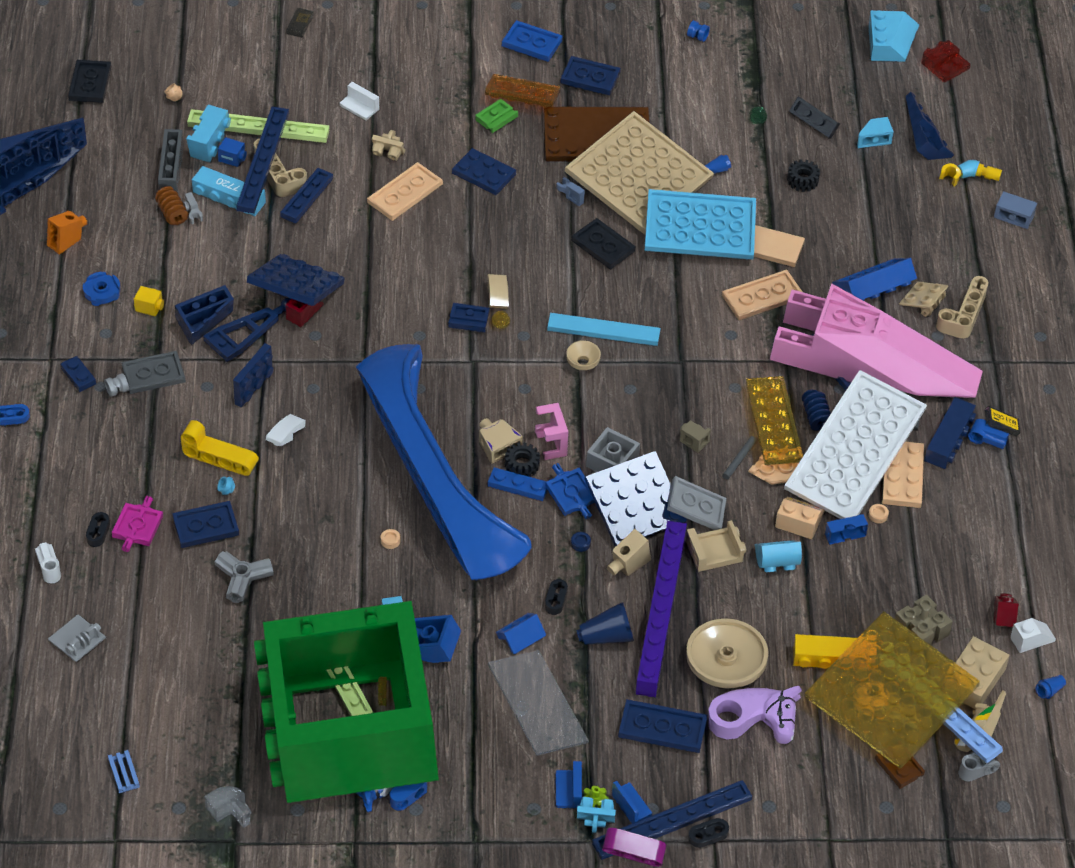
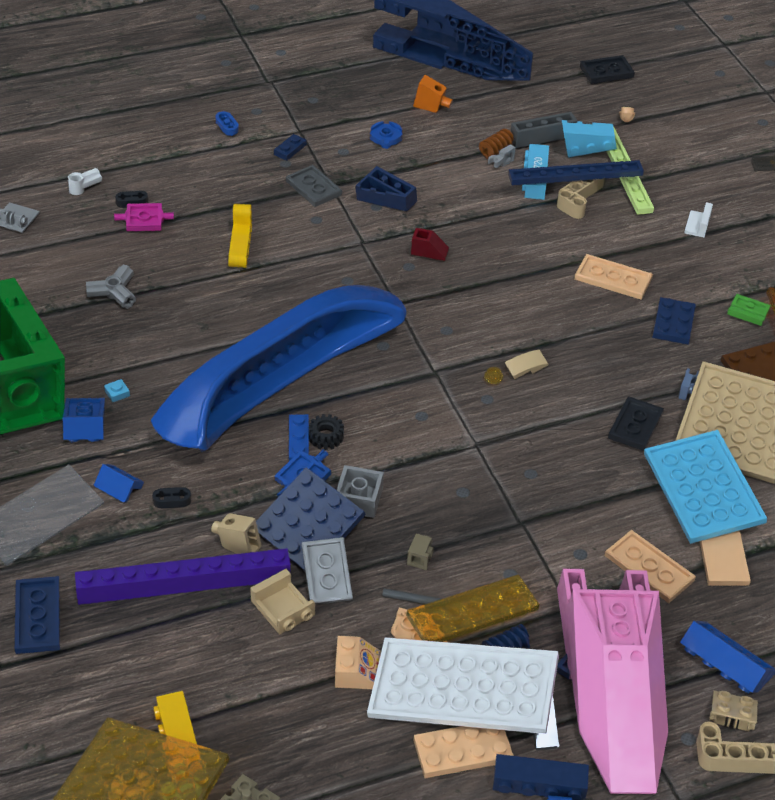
camera: 70 degrees right, 5 degrees down
(116, 385) = (284, 166): light grey wheel -> none
(148, 301) = (386, 158): yellow brick -> none
(205, 524) = (160, 254): dark blue plate -> none
(226, 485) = (207, 254): medium azure plate -> none
(227, 347) = (366, 209): dark blue plate -> none
(231, 152) = (582, 156): blue brick -> none
(253, 375) = (330, 232): dark blue plate -> none
(284, 429) = (278, 270): white slope -> none
(296, 279) = (452, 229): dark blue plate -> none
(306, 195) = (564, 217): dark blue plate -> none
(388, 142) = (656, 249): tan hips -> none
(390, 538) = (193, 366): light nougat tile -> none
(469, 317) = (482, 353): dark blue plate -> none
(497, 438) = (343, 405): tan torso -> none
(555, 430) = (366, 441): bright pink panel -> none
(580, 541) = (248, 500): dark blue tile -> none
(583, 350) = (477, 436): tan piece -> none
(603, 329) = (526, 453): medium azure tile -> none
(607, 627) = (142, 541): dark blue cone -> none
(727, 653) = (140, 641): tan dish -> none
(752, 705) = (82, 680): lavender animal -> none
(778, 554) = (291, 654): medium azure brick -> none
(850, 527) = (353, 707): blue piece -> none
(878, 513) = (395, 738): light nougat tile -> none

